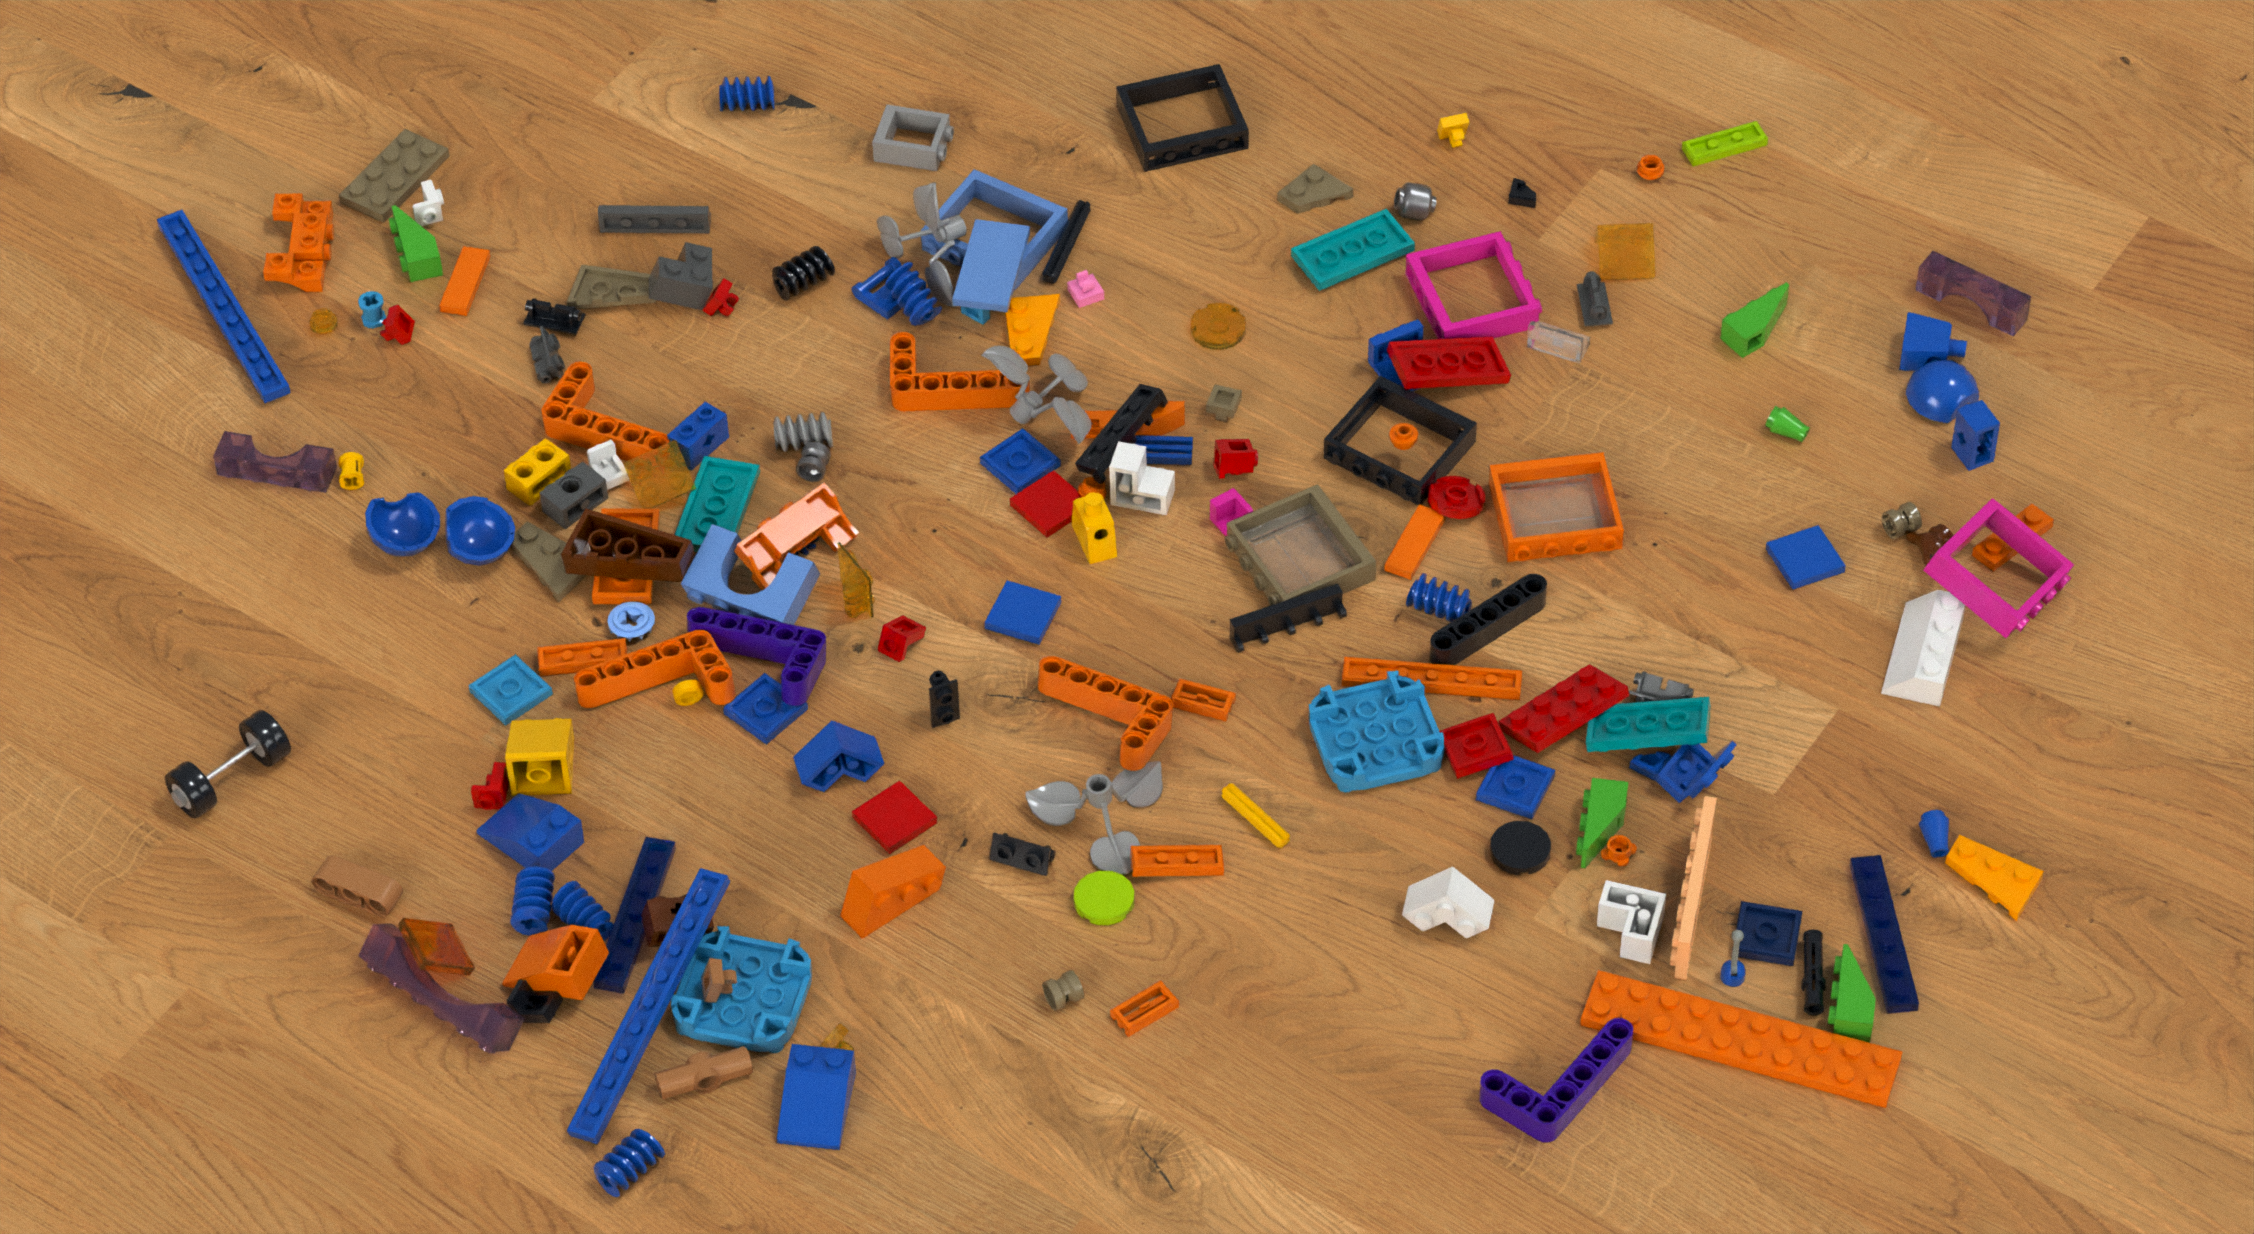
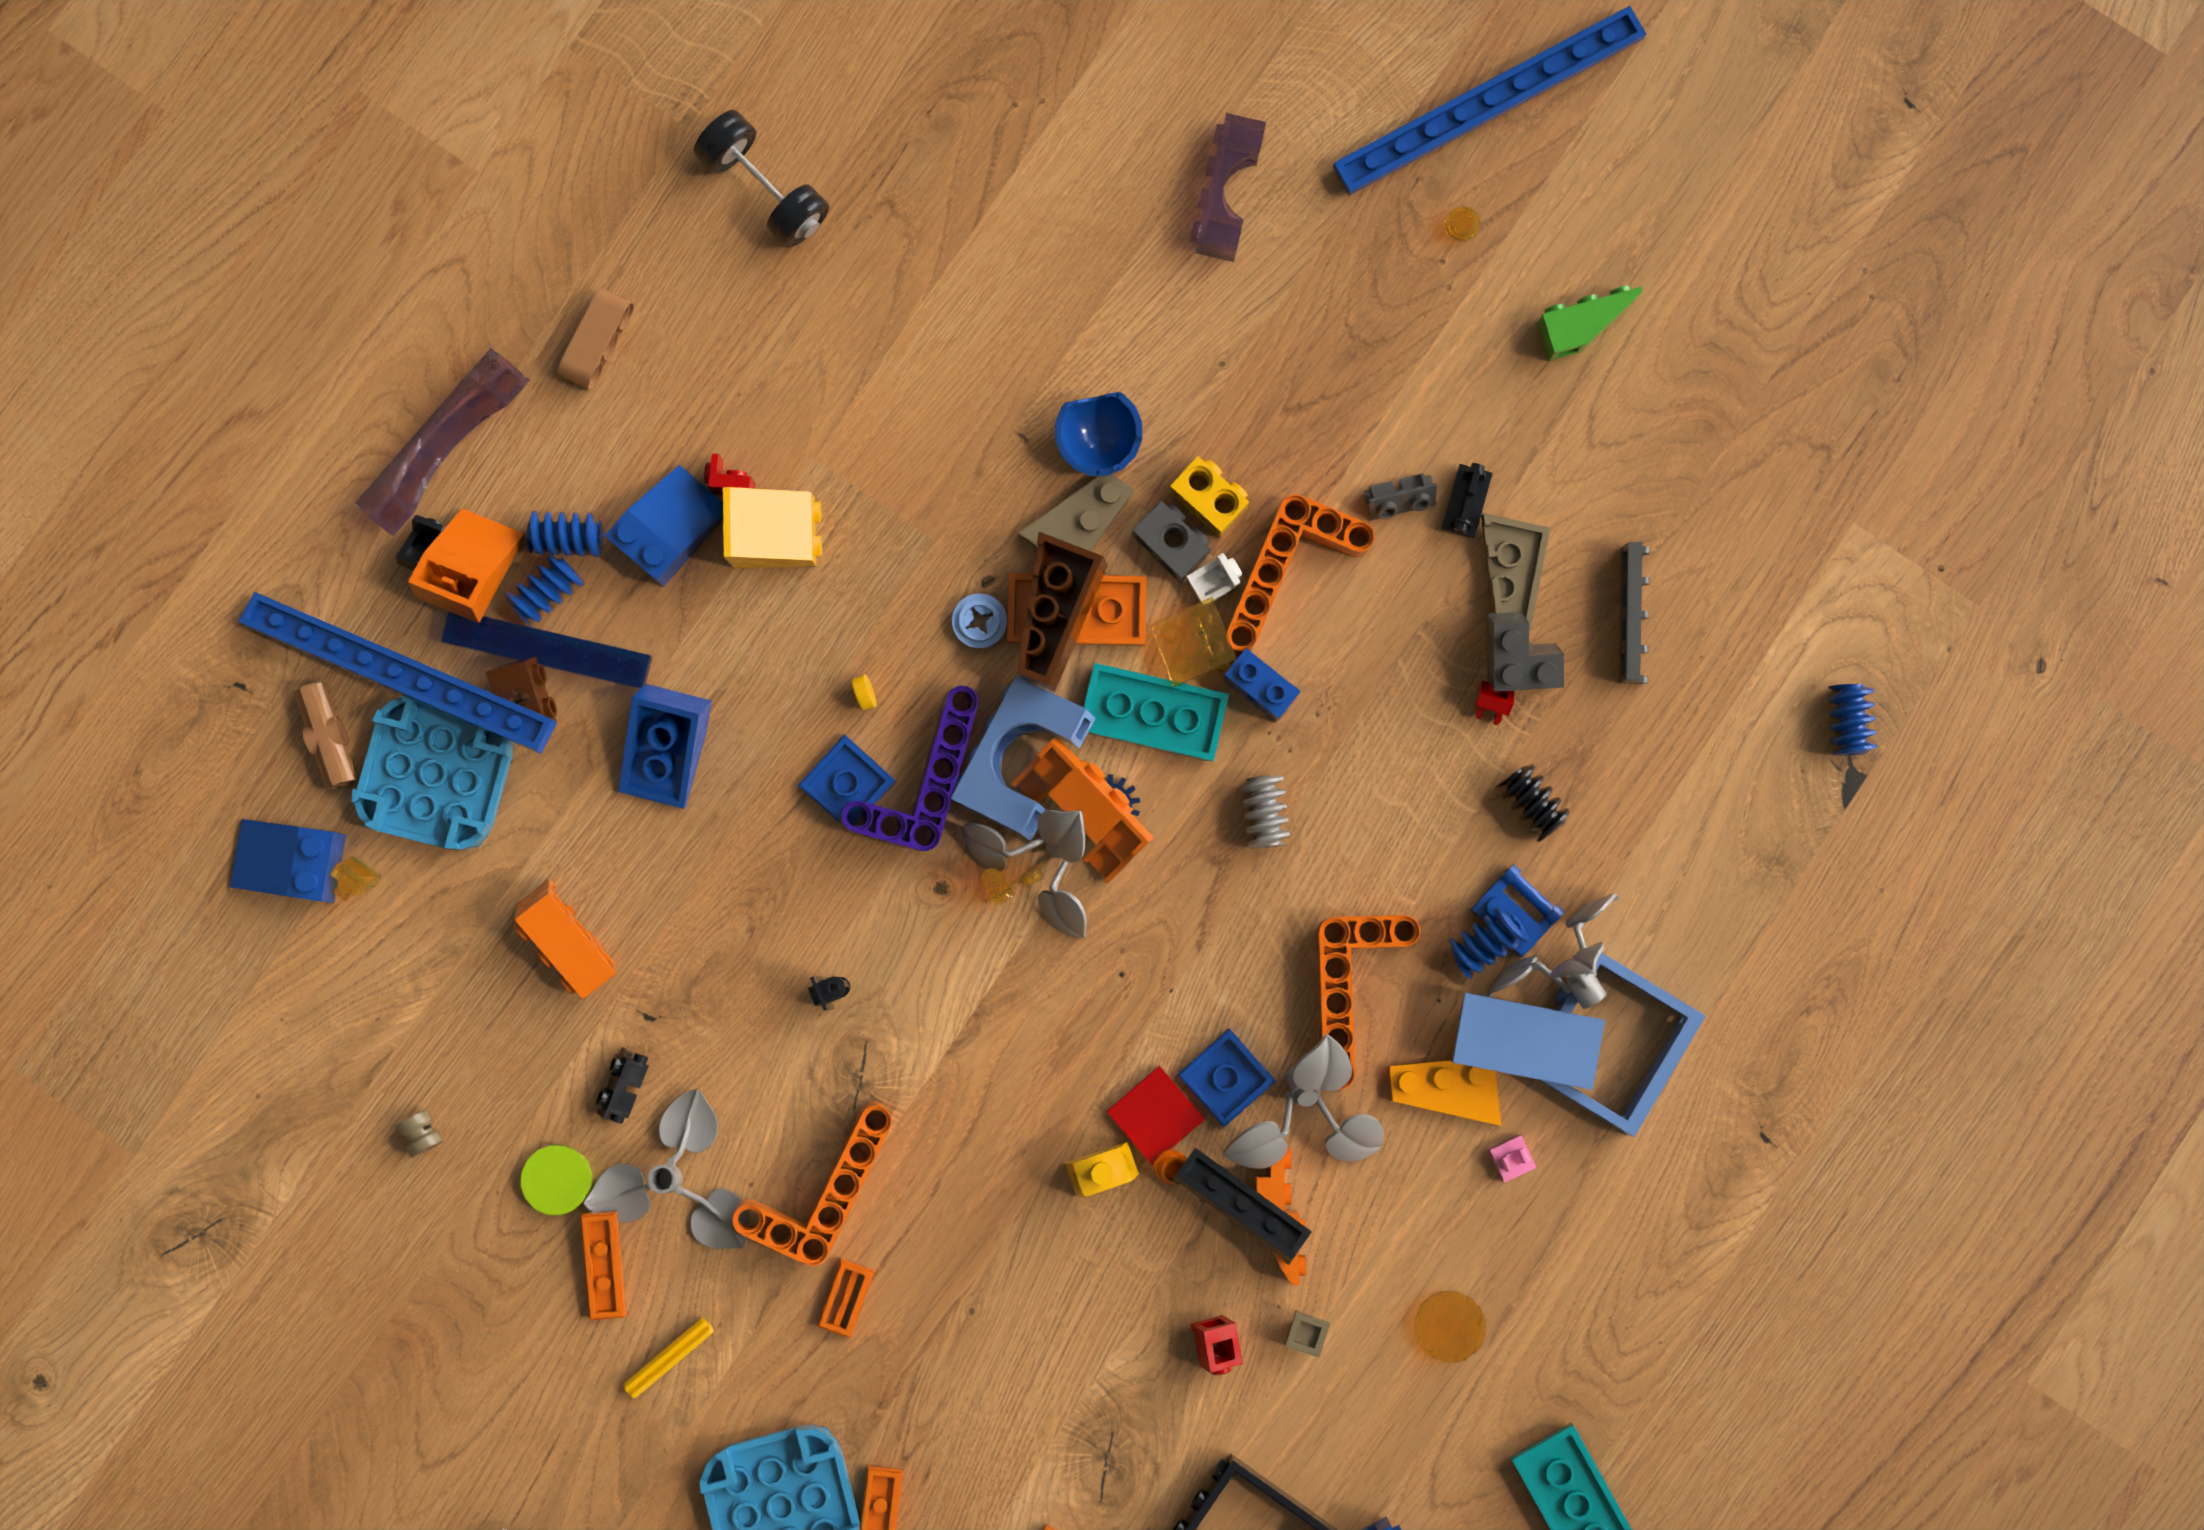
camera: 90 degrees right, 35 degrees up
(309, 242) = (1592, 193): orange bracket -> none
(351, 466) = (1215, 277): yellow bush -> none
(371, 304) = (1487, 279): dark azure bush -> none
(394, 175) = (1715, 287): dark tan plate -> none
(397, 325) = (1451, 313): red tile -> none
(404, 525) = (1112, 343): blue cylinder -> none
(429, 210) = (1664, 337): white bracket -> none
(436, 946) = (497, 432): clear orange tile -> none
(465, 281) = (1533, 388): orange tile -> none
(510, 689) = (882, 488): dark azure tile -> none
(578, 656) = (929, 568): orange tile -> none
(627, 1159) = (204, 661): blue piece -> none
(656, 665) = (898, 658): orange beam -> none
(716, 980) = (427, 744): medium nougat tile -> none
(725, 826) = (663, 745): none -> blue slope
(813, 461) = (1228, 828): flat silver wheel -> none
(813, 524) = (1064, 840): none -> light grey plant
(837, 752) = (751, 870): blue brick -> none
(894, 817) = (681, 937): red tile -> none
(898, 636) = (945, 939): red bracket -> none
(910, 154) = (1752, 898): light grey window -> none
(1023, 612) = (984, 1083): blue tile -> none
(1066, 241) = (1596, 1134): black axle -> none
(1139, 485) = (1172, 1229): white brick -> none
(1147, 1012) = (413, 1218): orange tile -> none
(1167, 449) = (1239, 1285): blue tile -> none
(1187, 147) = (1760, 1304): black window -> none
(1227, 508) = (1127, 1338): dark pink panel -> none
(1286, 616) = (963, 1403): black hinge -> none
(1300, 547) = (1064, 1423): piece -> none
(1313, 189) = (1688, 1455): dark tan wing -> none

